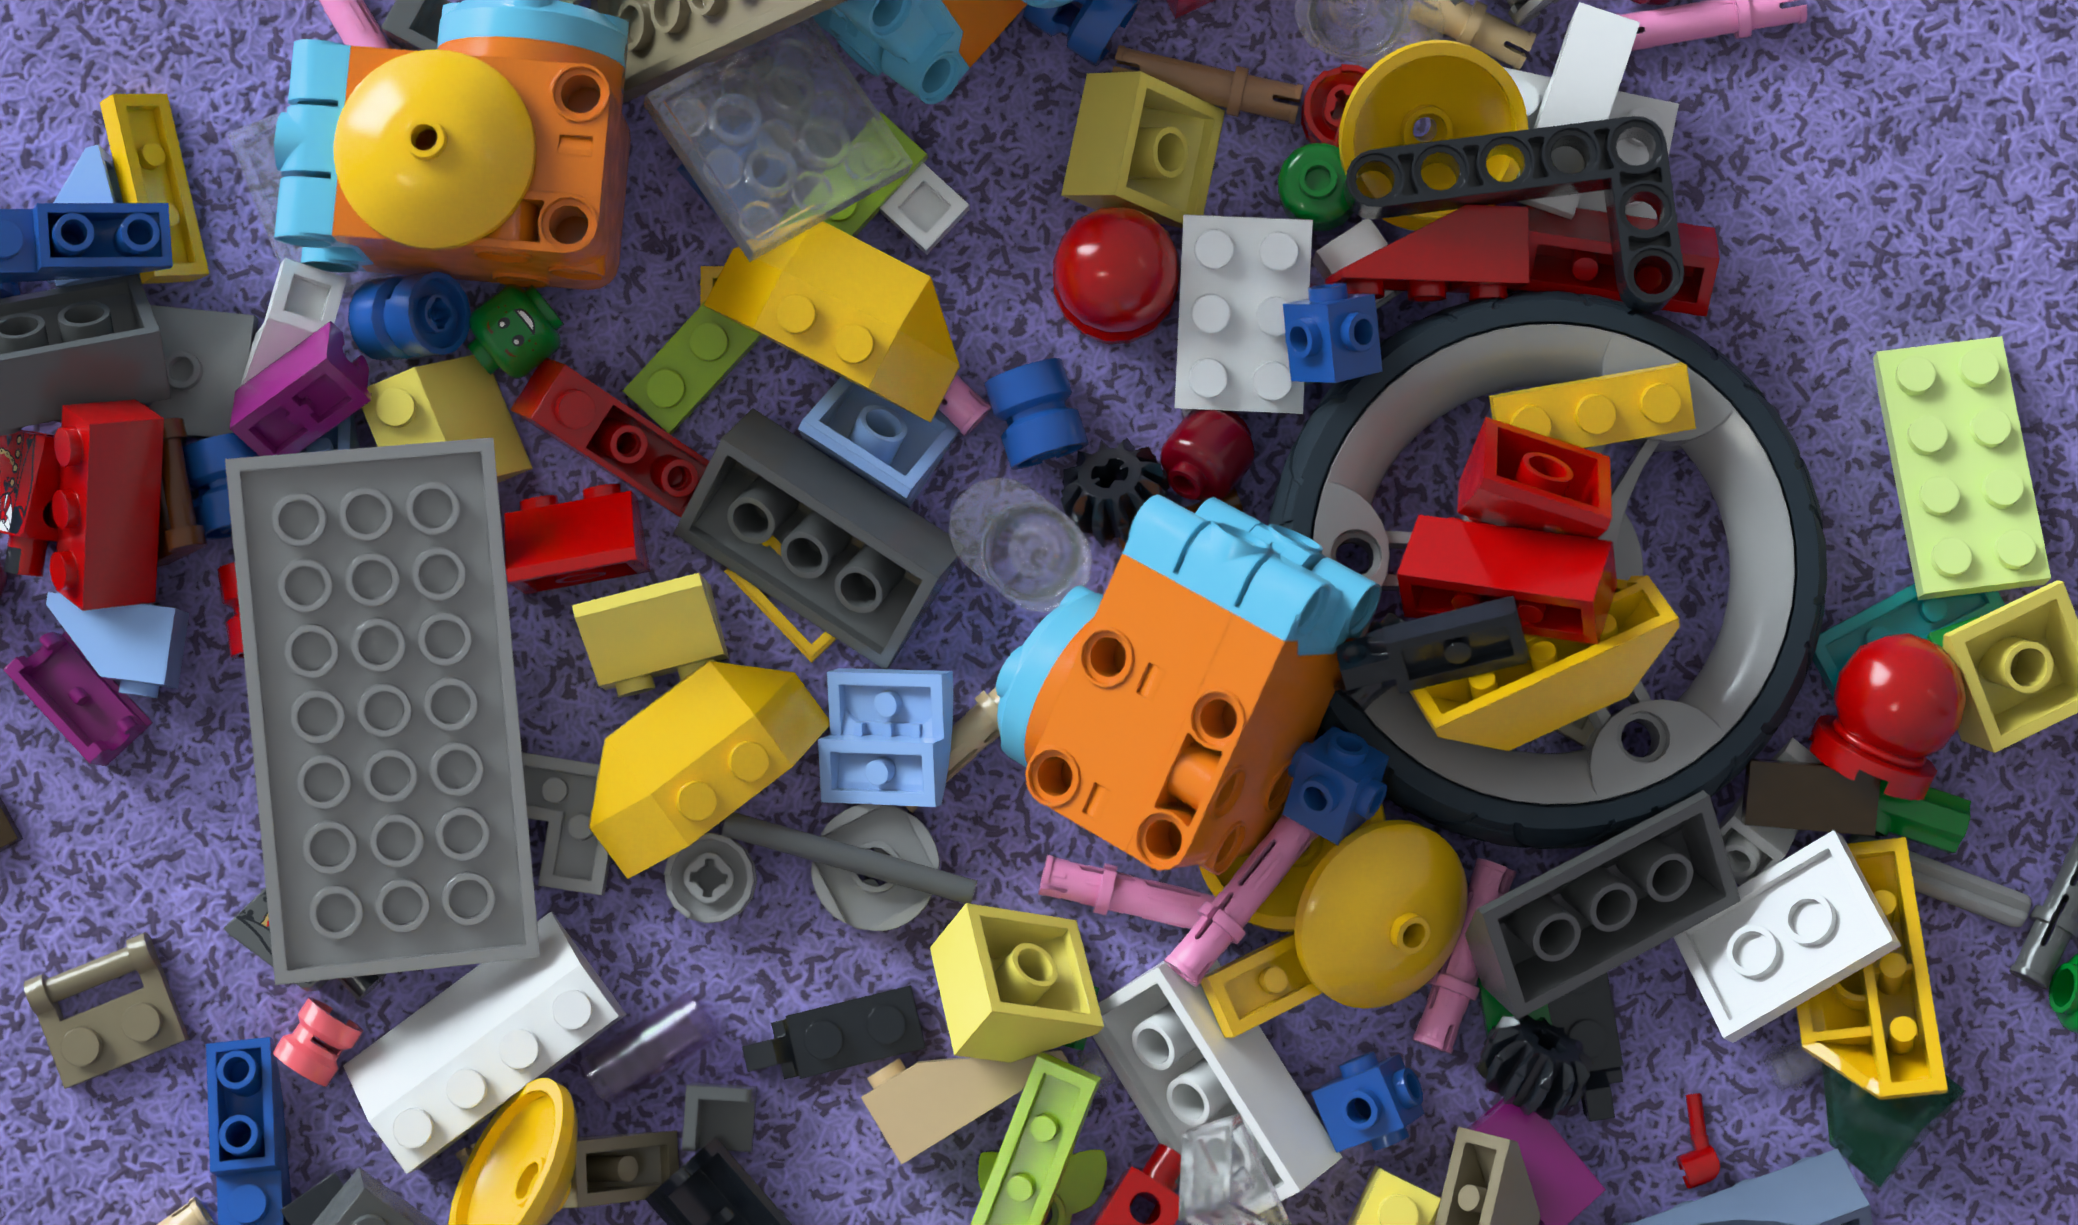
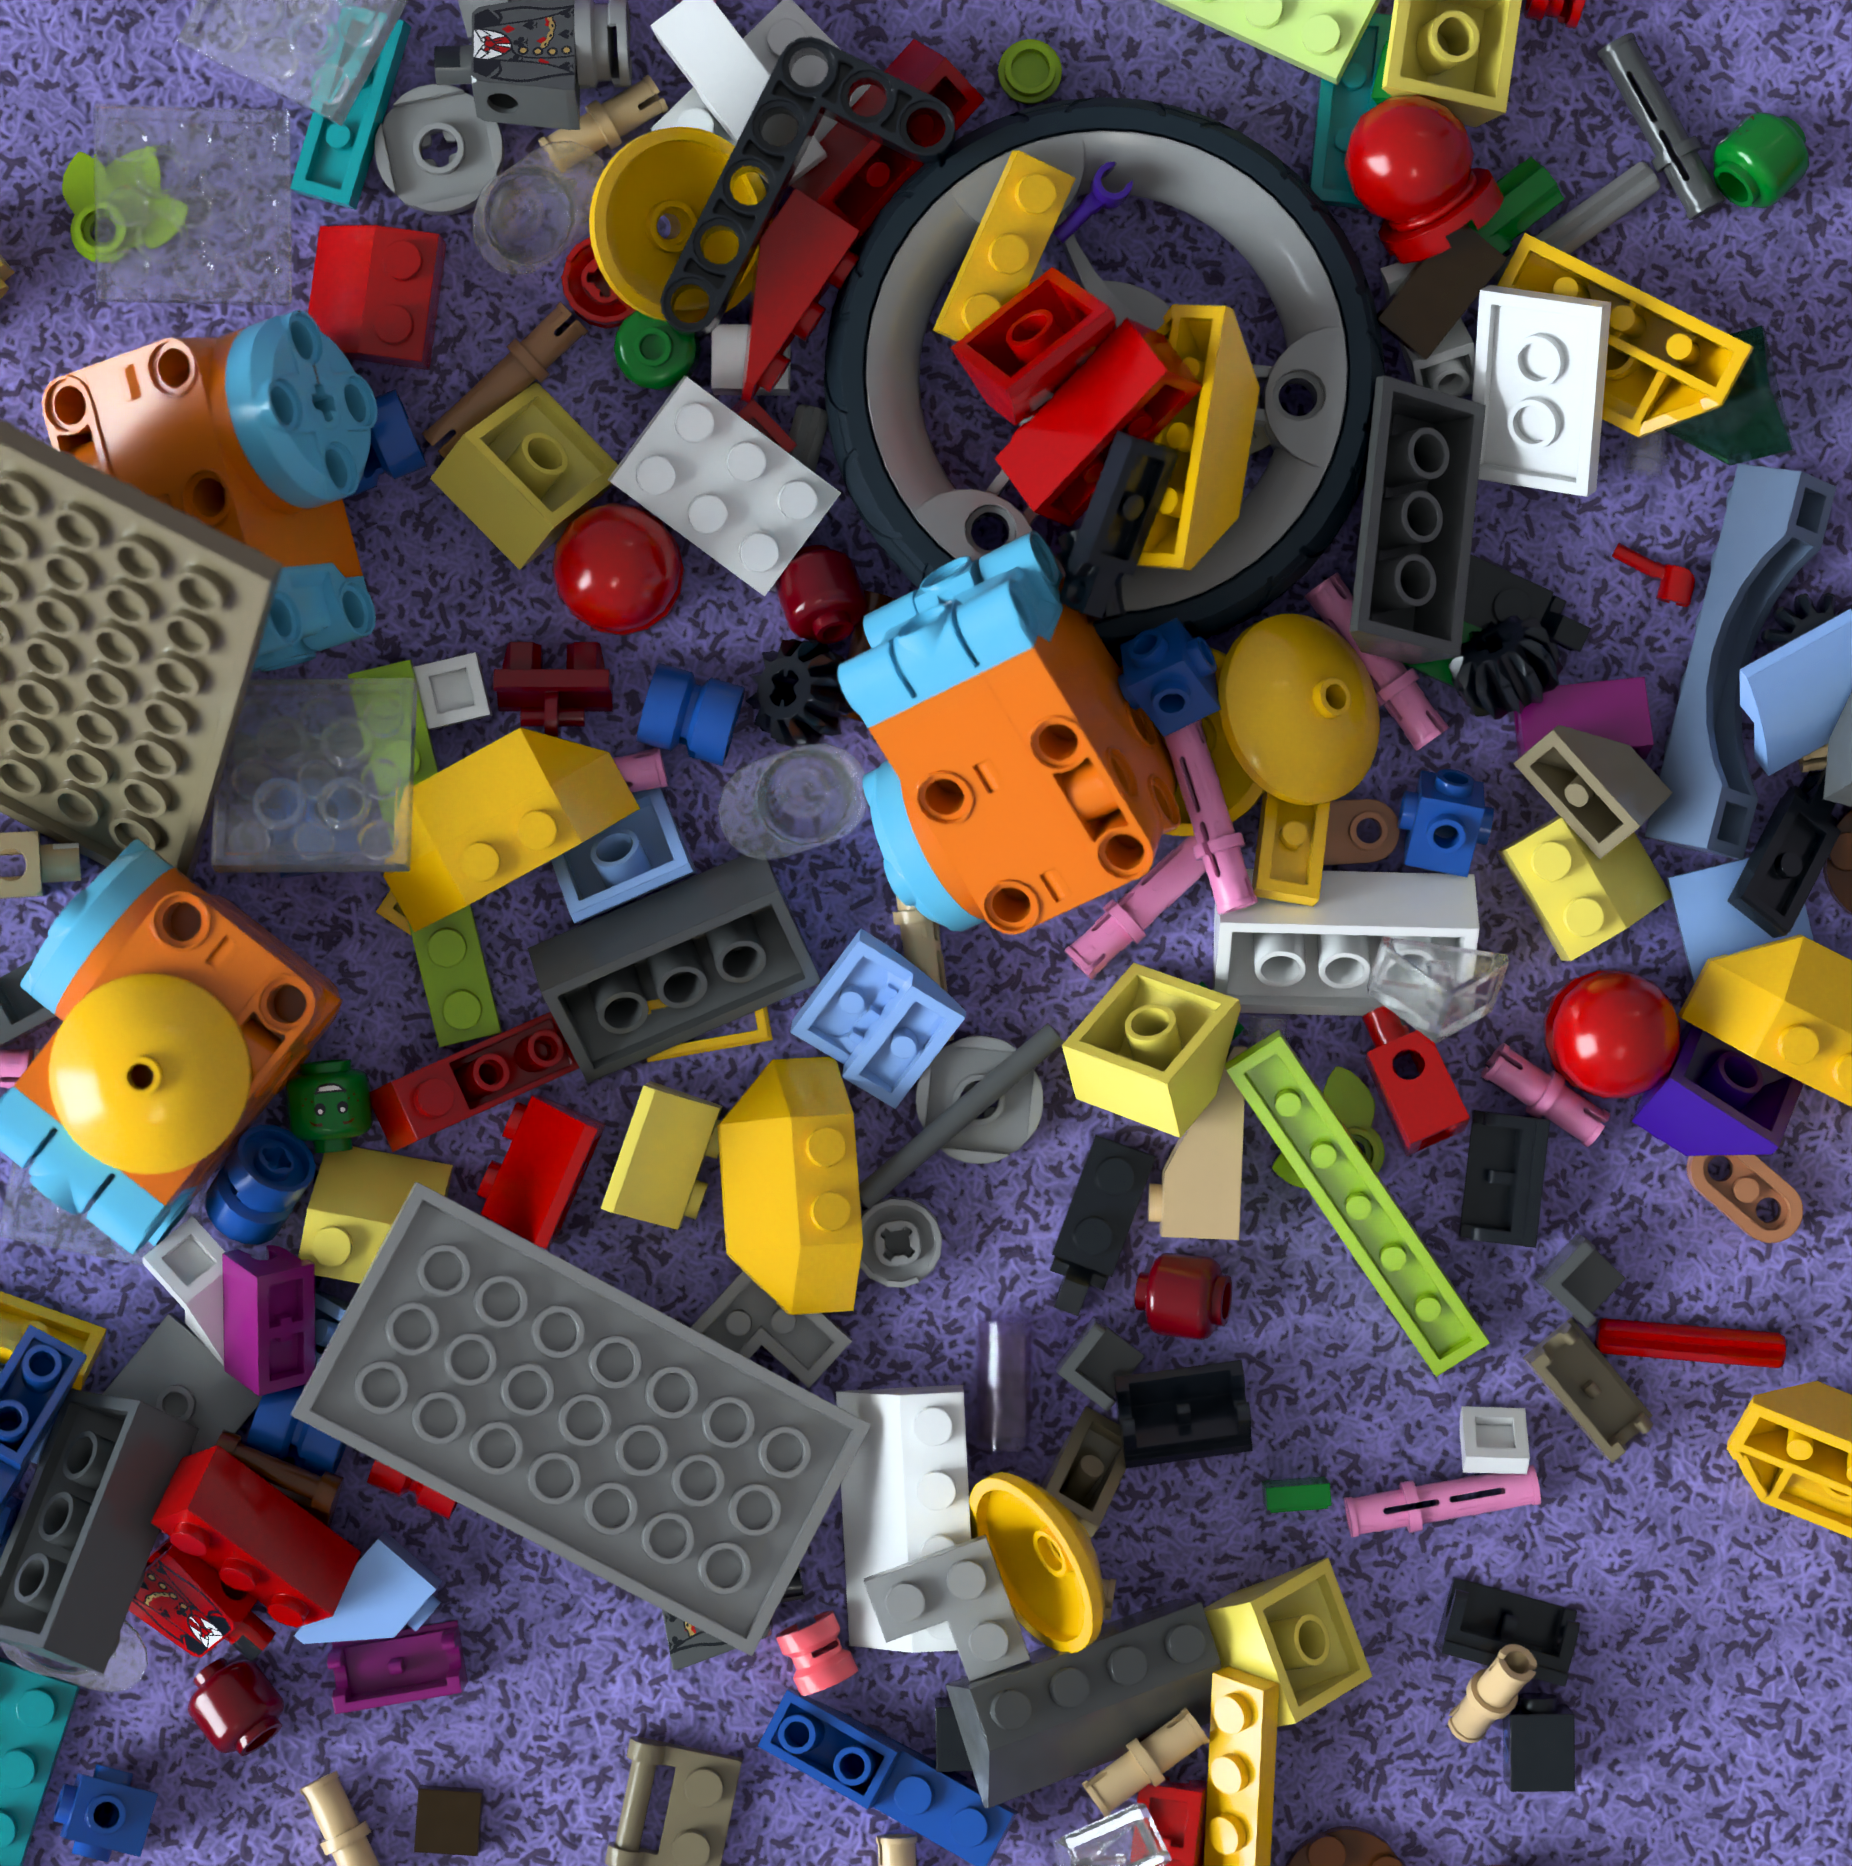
camera: 55 degrees left, 5 degrees up
(447, 1123) = (958, 1588): none -> light grey plate
(823, 1151) = (1184, 1296): none -> dark red head
(977, 293) = (553, 695): none -> dark red hips
(1297, 1024) = (1342, 840): none -> nougat plate
(1332, 335) = (796, 427): blue brick -> none
(1685, 458) = (1092, 203): none -> dark purple hand
(1753, 341) = (1029, 71): none -> lime plate

